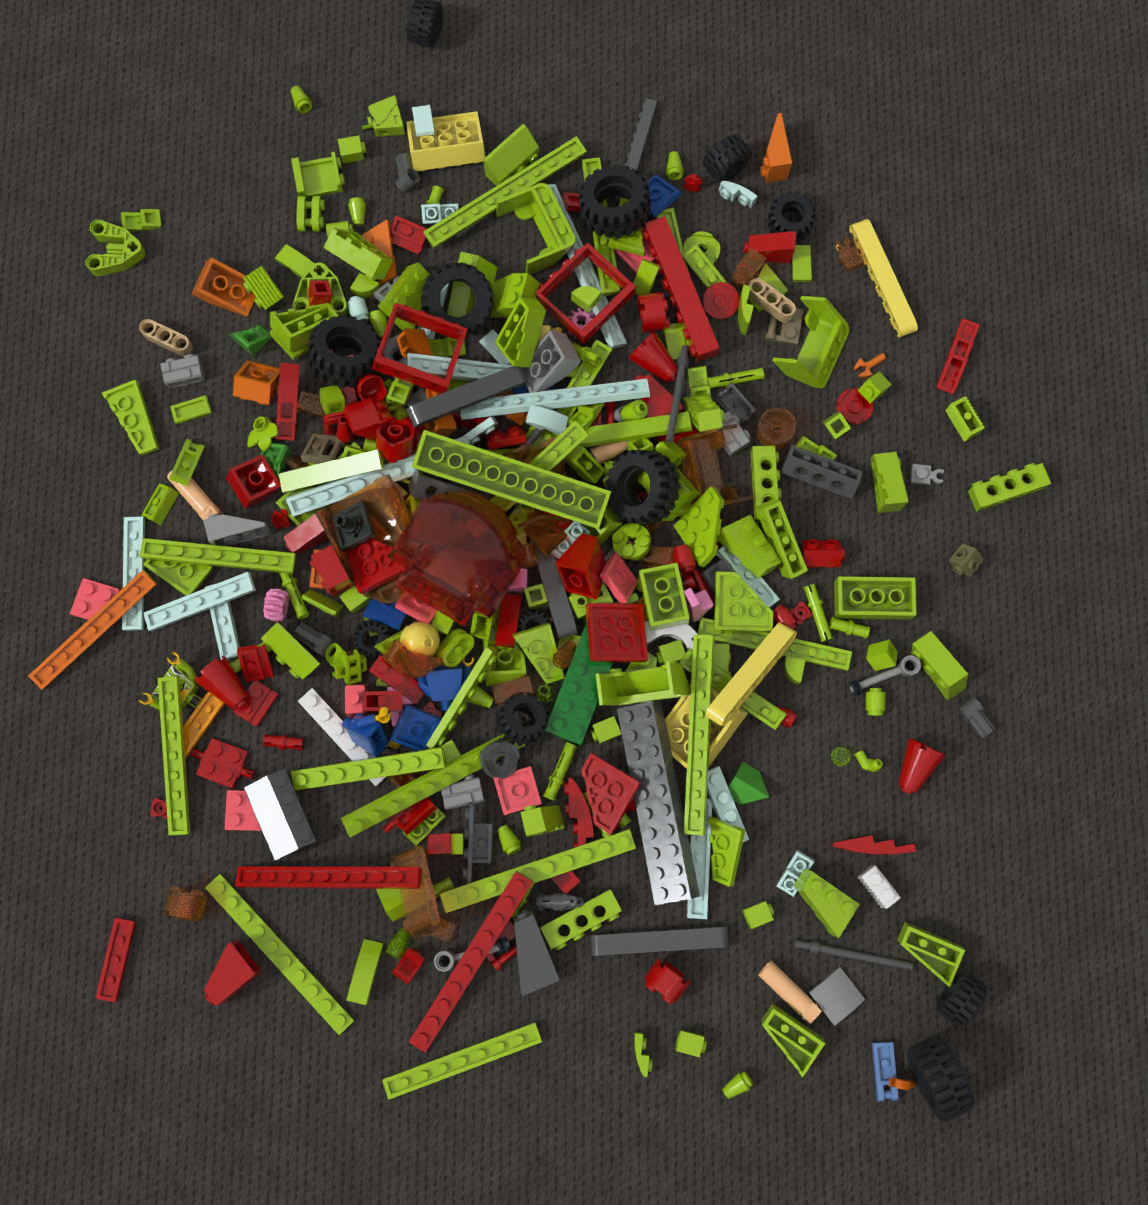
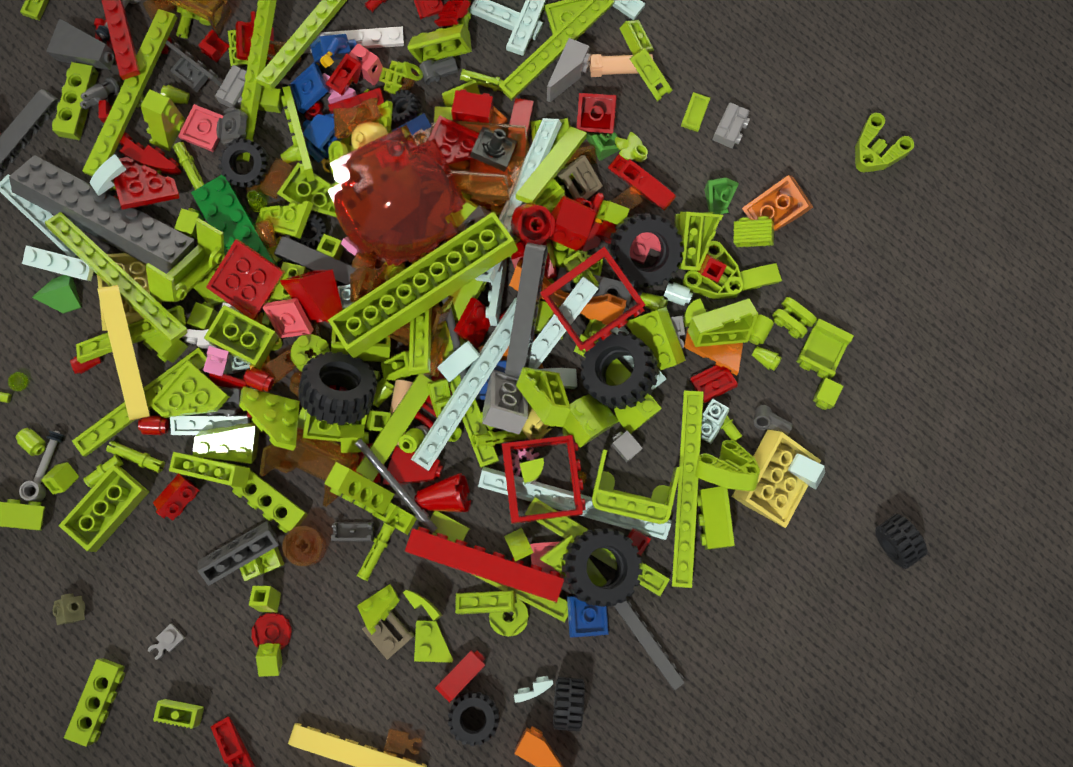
camera: 130 degrees right, 0 degrees up
(133, 415) = (731, 69): lime wing -> none
(142, 220) = (890, 185): lime slope -> none
(160, 331) = (776, 127): tan beam -> none
(256, 382) = (678, 173): orange slope -> none
(276, 604) = (485, 59): bright pink gear -> none
(280, 519) = (552, 111): red plate -> none
(301, 100) = (904, 386): lime cone -> none
(371, 387) = (594, 243): red hair -> none
(384, 118) = (836, 442): lime torso -> none
(457, 844) = (199, 53): lime slope -> none
(464, 160) = (732, 470): none -> lime connector
(508, 260) = (626, 445): none -> light grey brick
(508, 620) = (325, 210): red tile -> none
(623, 819) = (107, 171): none -> light aqua slope
(652, 312) = (483, 525): red brick -> none
(665, 537) = (294, 383): none -> clear orange arm
(674, 166) = (602, 656): lime cone -> none
(688, 582) = (239, 371): red plate -> none
(692, 183) = (574, 659): red plate -> none
(720, 300) = (450, 594): red tile -> none
(727, 847) = (26, 238): lime wing -> none
(736, 438) = (338, 509): light grey brick -> none
(747, 268) = (457, 639): clear orange slope -> none
(774, 342) = (378, 607): none -> lime wing
(776, 308) = (402, 633): tan beam -> none
(793, 669) = (108, 399): lime brick -> none
(801, 264) = (427, 694): lime tile -> none
(801, 608) = (142, 443): red plate -> none
(821, 346) = (341, 641): lime windscreen -> none
(870, 364) = (295, 675): orange bar -> none
(888, 482) = (182, 601): lime wedge -> none

